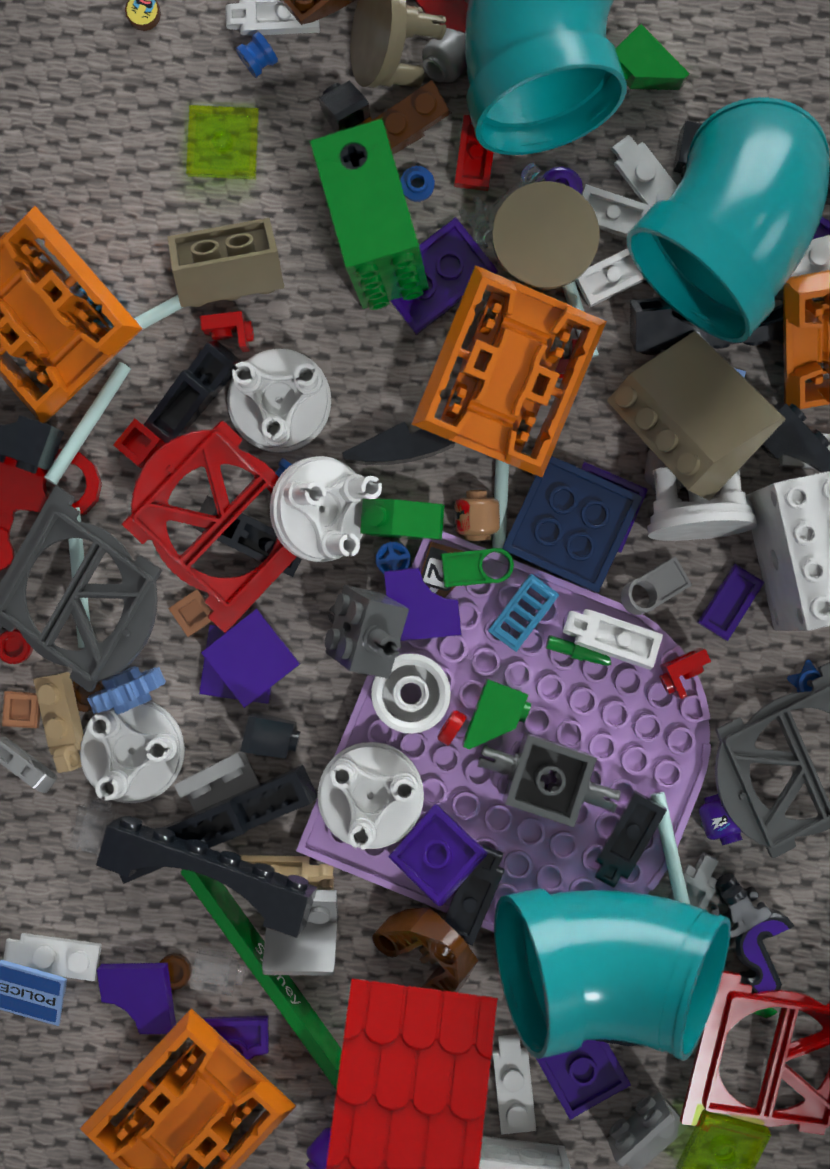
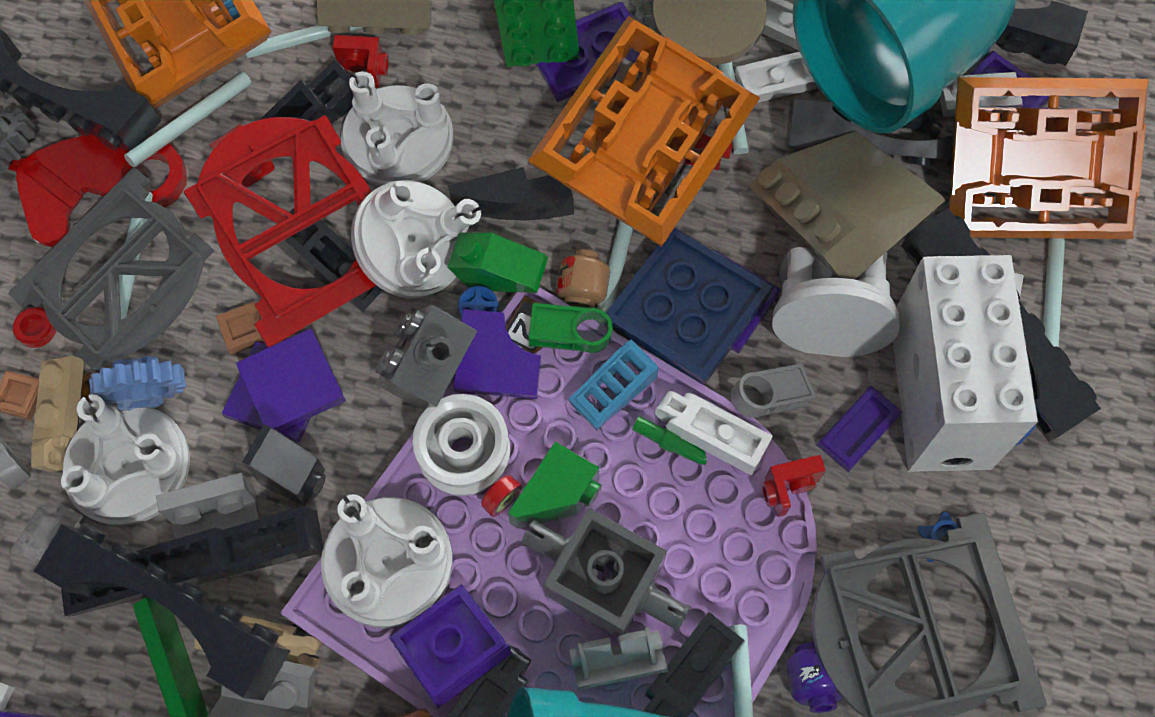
camera: 15 degrees right, 20 degrees down
(571, 842) = (636, 657): none -> light grey hinge

